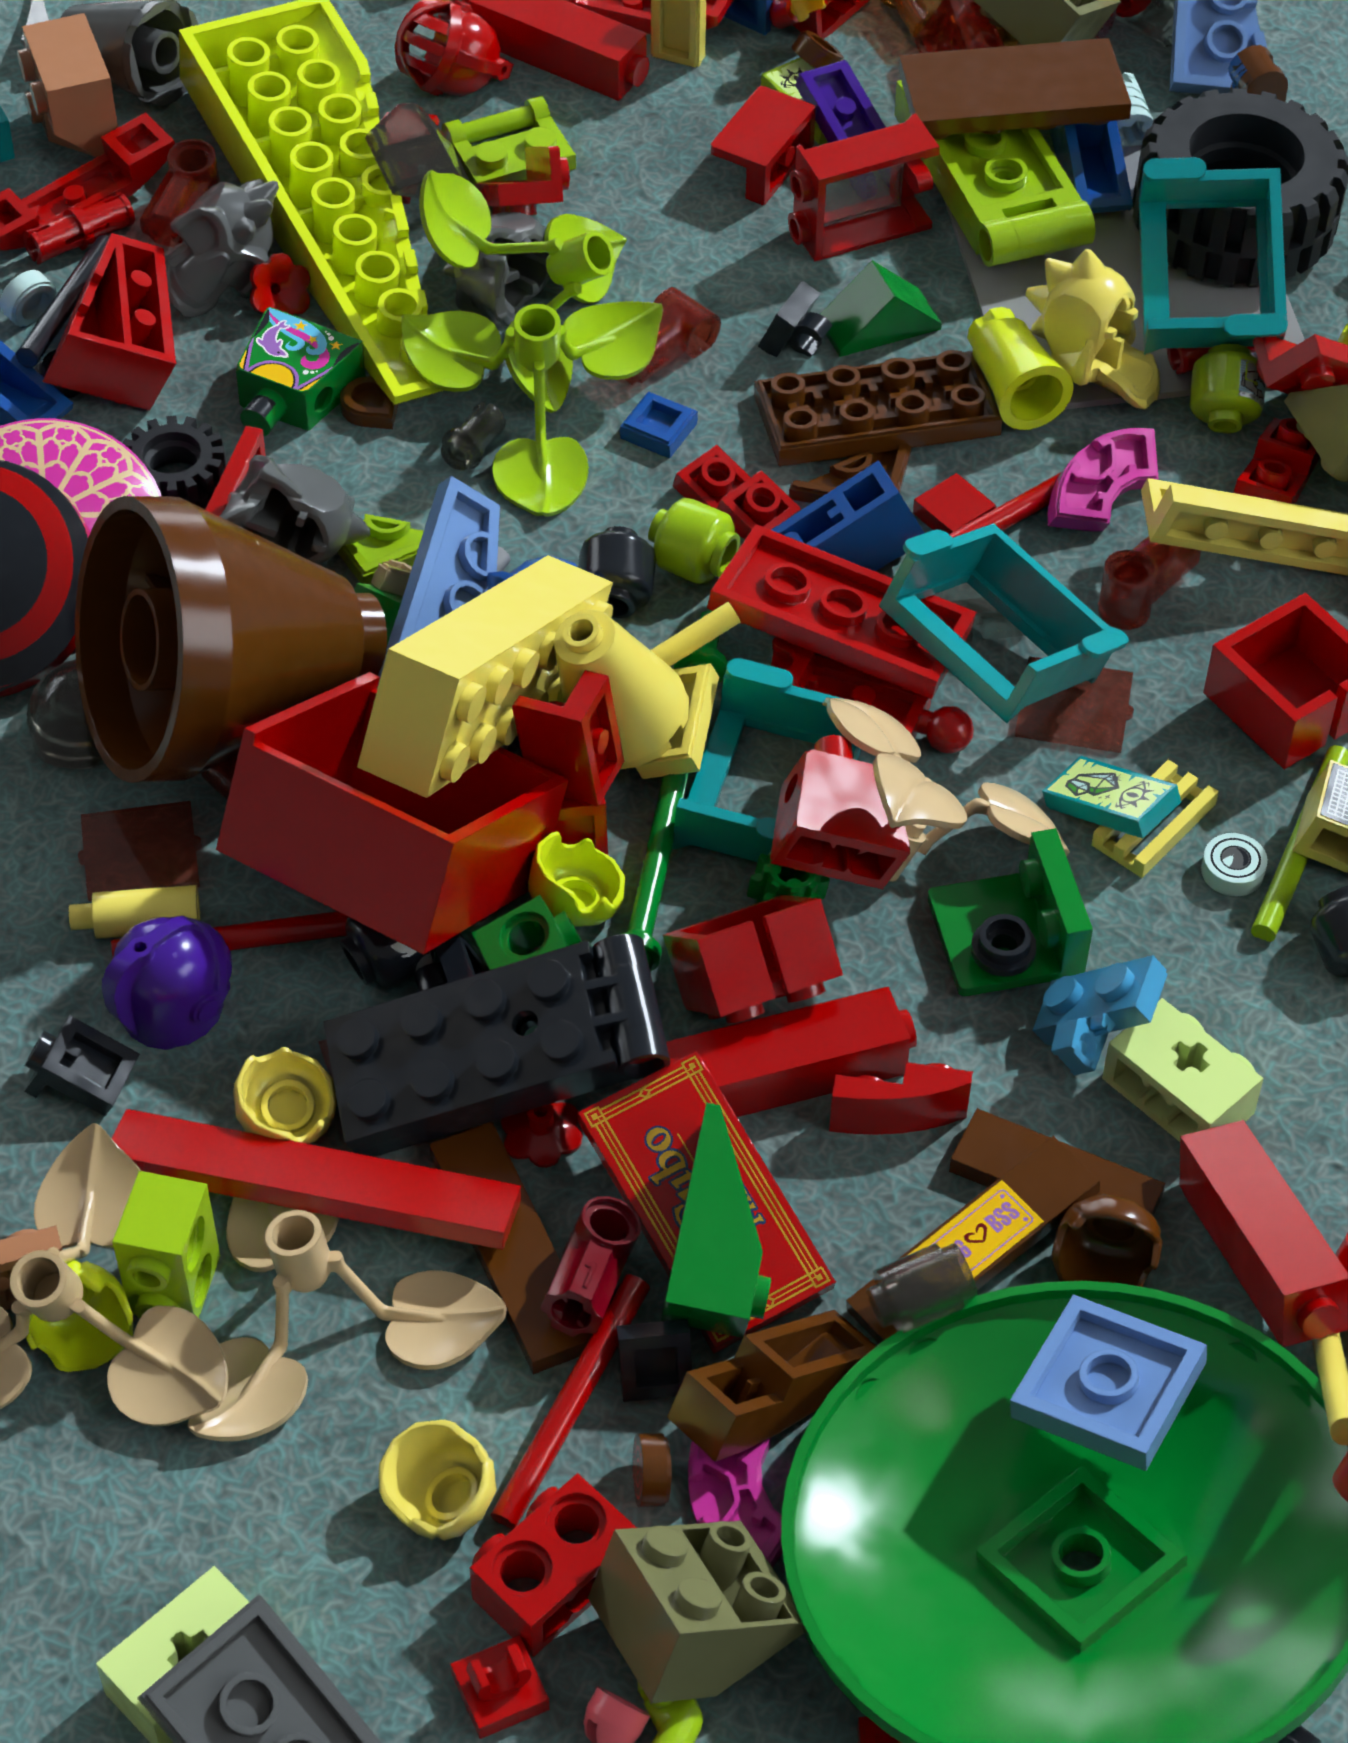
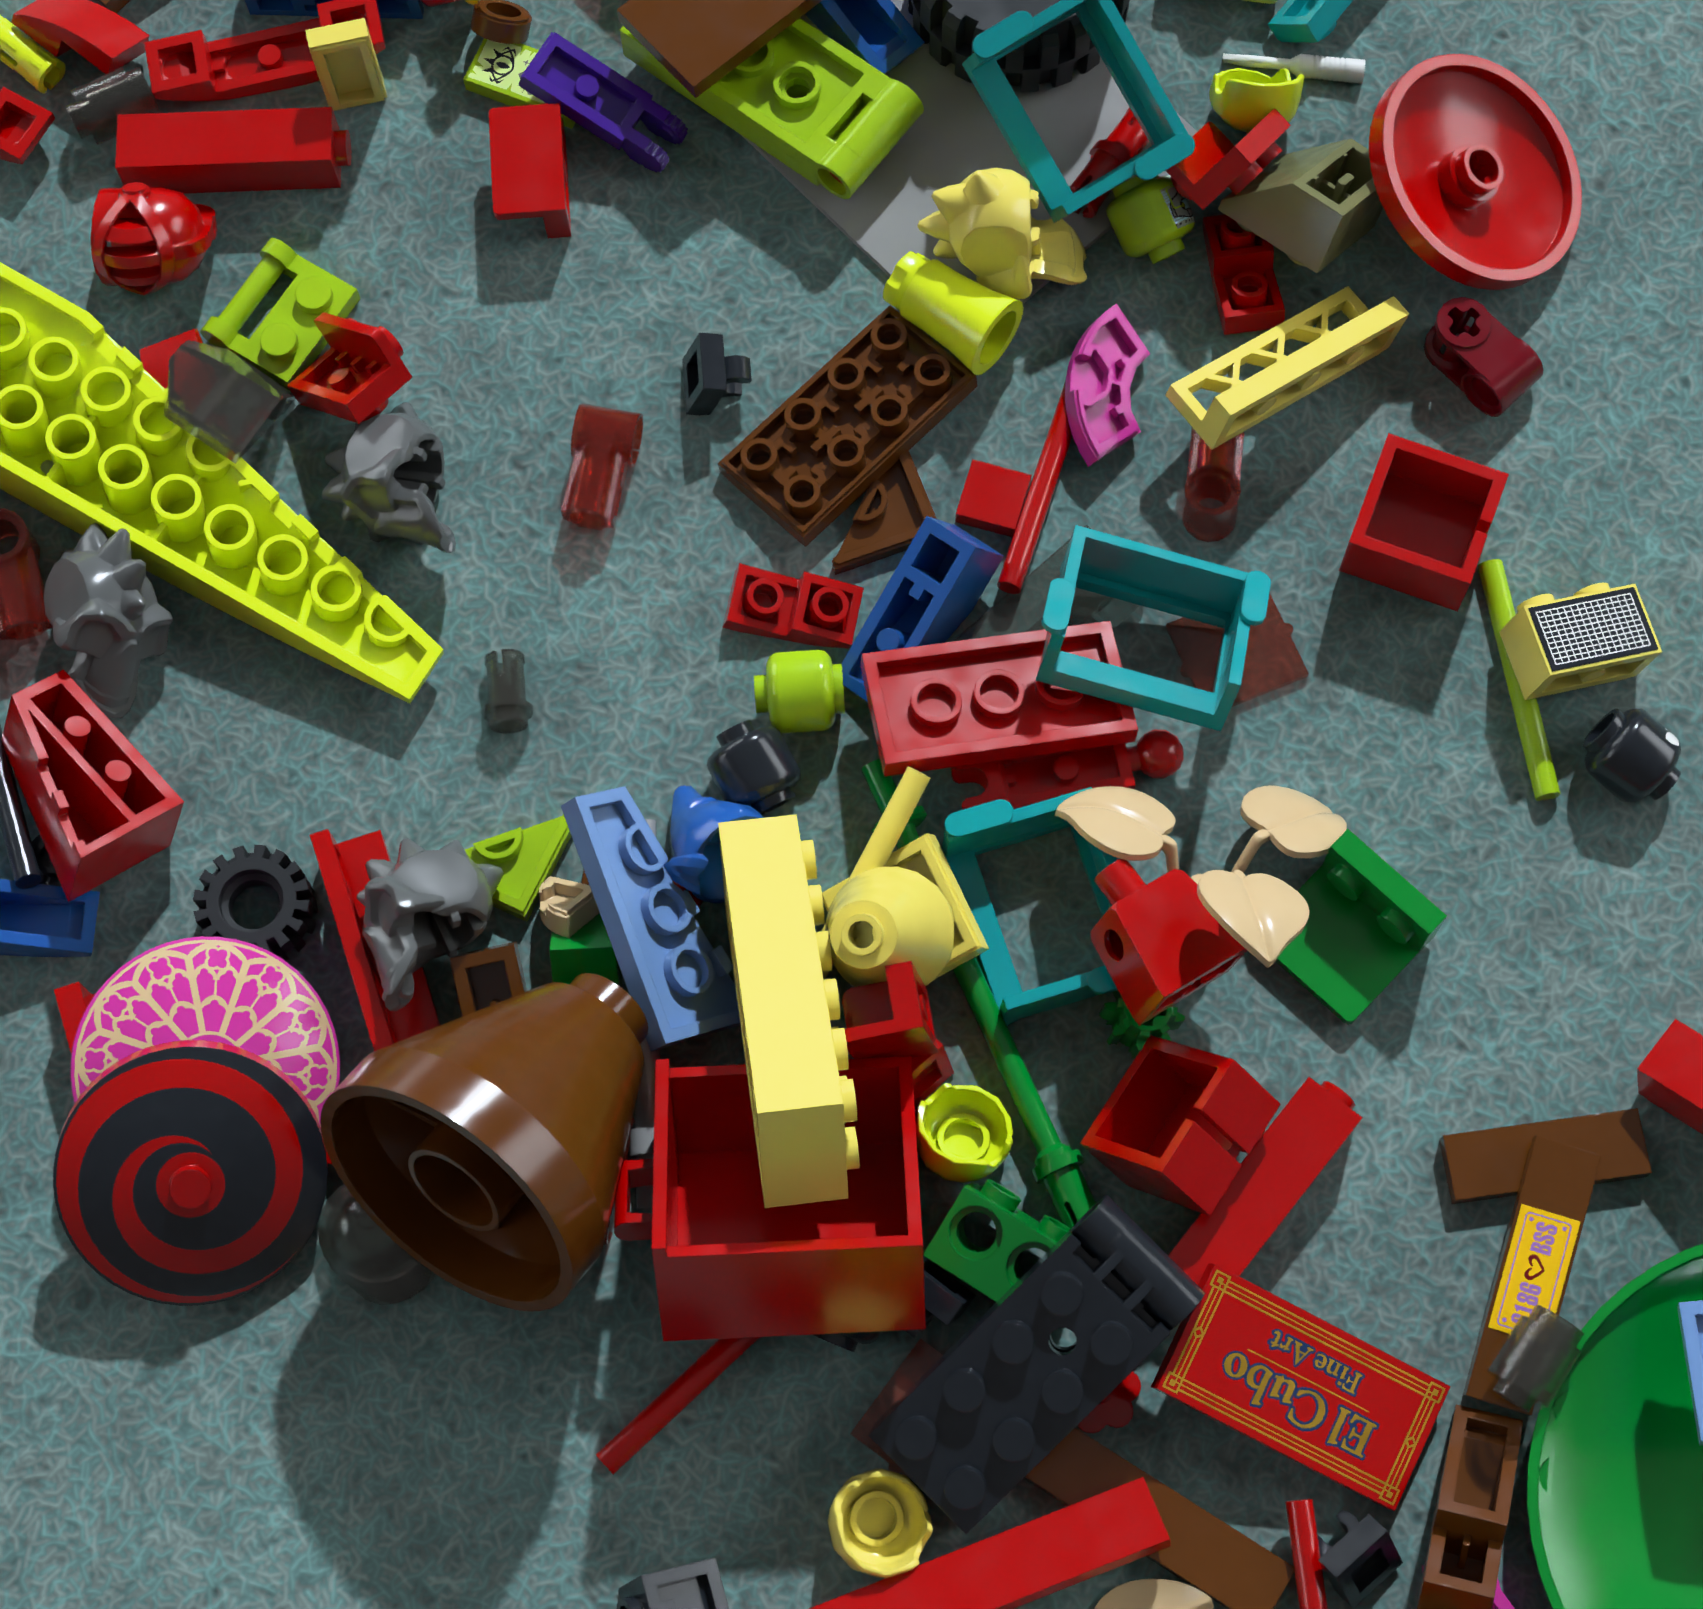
camera: 30 degrees left, 20 degrees up
(117, 911) = (599, 1412): light yellow cylinder -> none
(140, 848) = (543, 1352): clear red piece -> none
(168, 981) = (691, 1471): dark purple helmet -> none
(280, 285) = (196, 632): red plant -> none
(294, 371) = (287, 726): green torso -> none
(367, 404) = (374, 712): reddish brown tile -> none
(457, 346) = (570, 511): lime plant -> none
(578, 259) = (458, 418): lime plant -> none
(591, 1265) = (1256, 1517): dark red piece -> none
(658, 424) = (662, 566): blue tile -> none
(717, 1245) = (1357, 1443): green slope -> none
(861, 189) = (675, 182): red window -> none
(877, 311) = (774, 312): green slope -> none
(927, 1099) = (1390, 1159): red slope -> none
(1003, 932) = (1369, 945): black plate -> none
(1089, 1005) = (1484, 982): dark azure hinge -> none
(1107, 1242) = (1640, 1208): reddish brown hair -> none
(1112, 796) = (1346, 742): tile -> none
(1141, 864) = (1390, 683): light yellow tile -> none
(1181, 1074) = (1556, 1006): yellowish green brick -> none
(1228, 865) = (1480, 740): light aqua tile -> none

